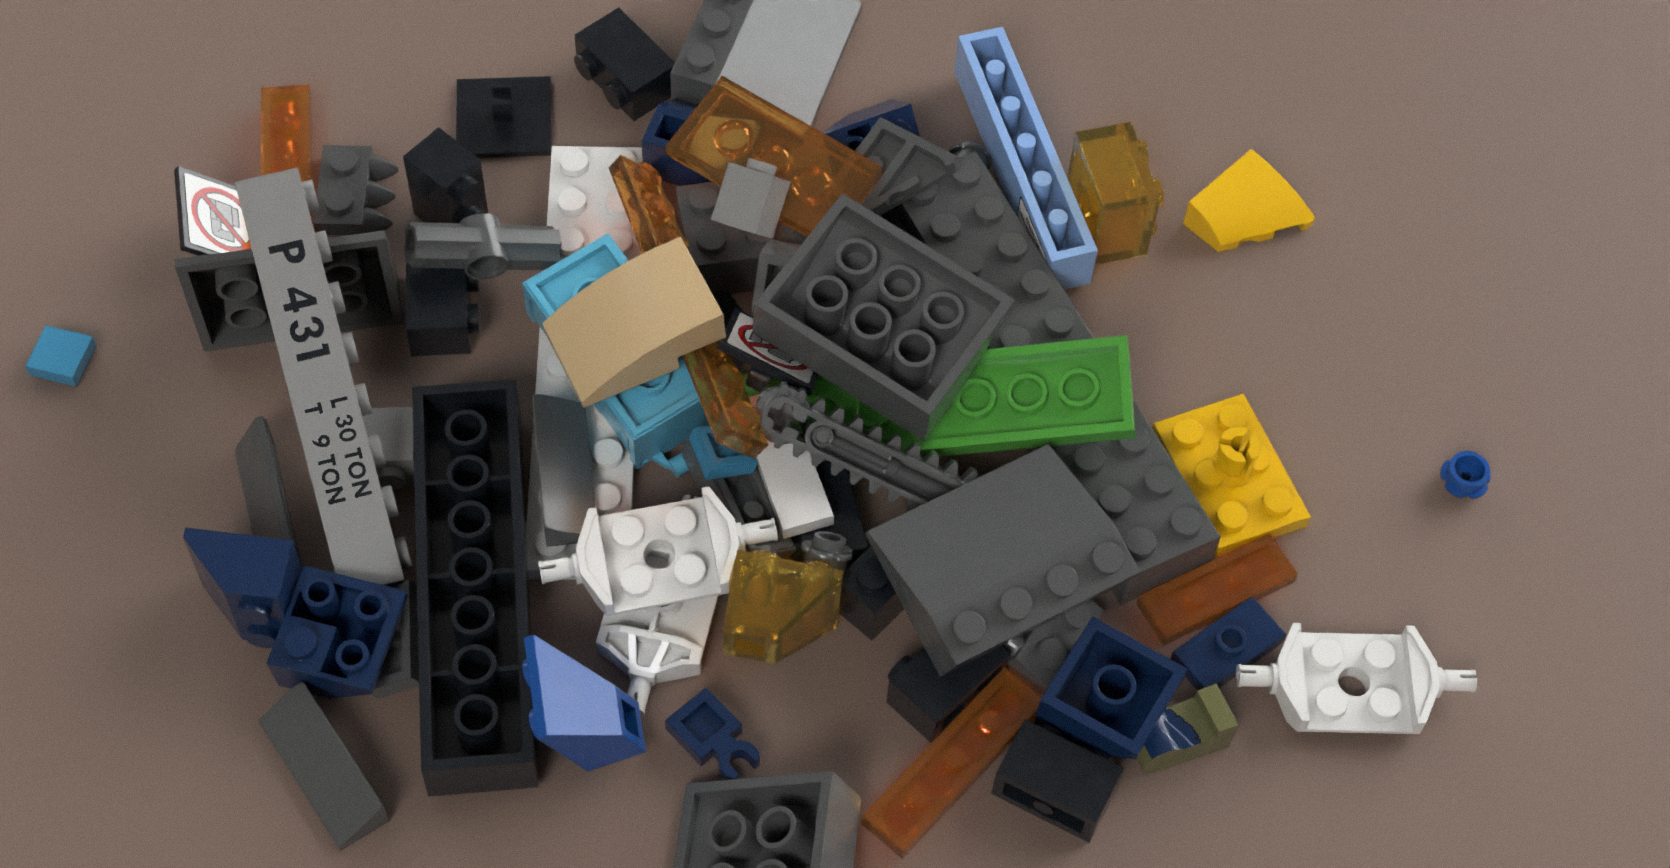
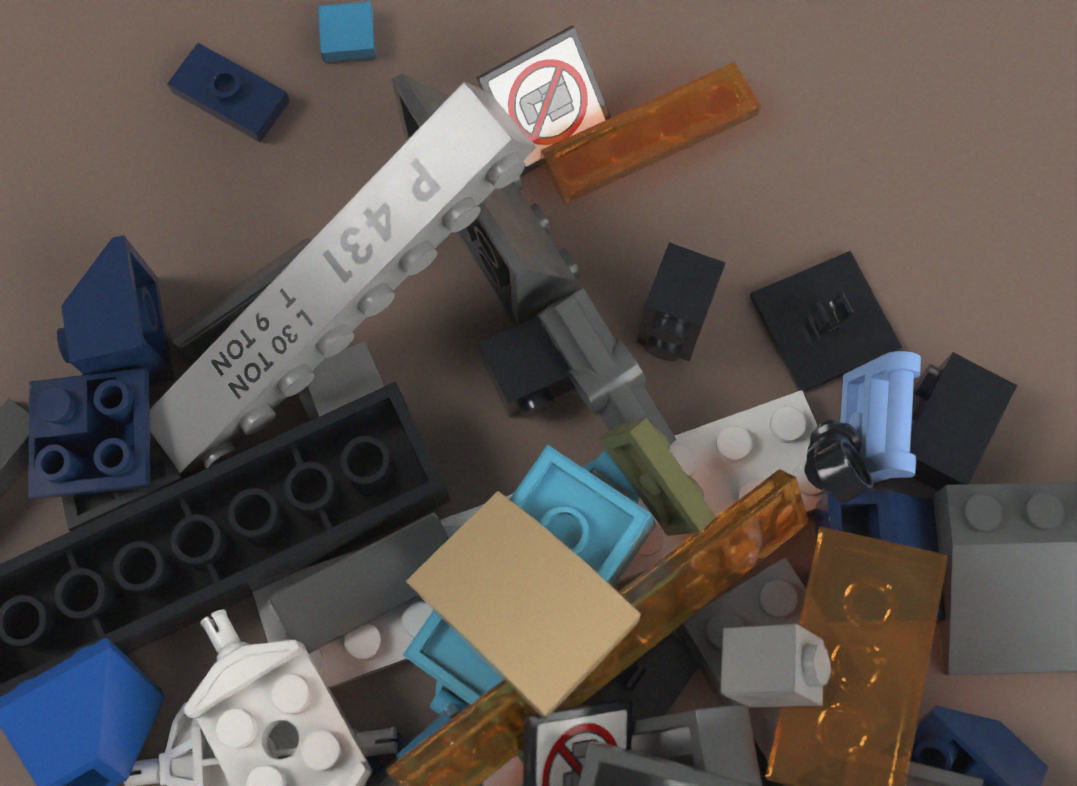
camera: 75 degrees right, 15 degrees up
(63, 464) = (228, 92): none -> dark blue plate
(349, 191) = (655, 206): dark grey plate -> none
(561, 233) = (657, 477): none -> olive plate
(596, 111) = (879, 406): none -> light blue plate
(627, 114) = (835, 462): none -> black connector

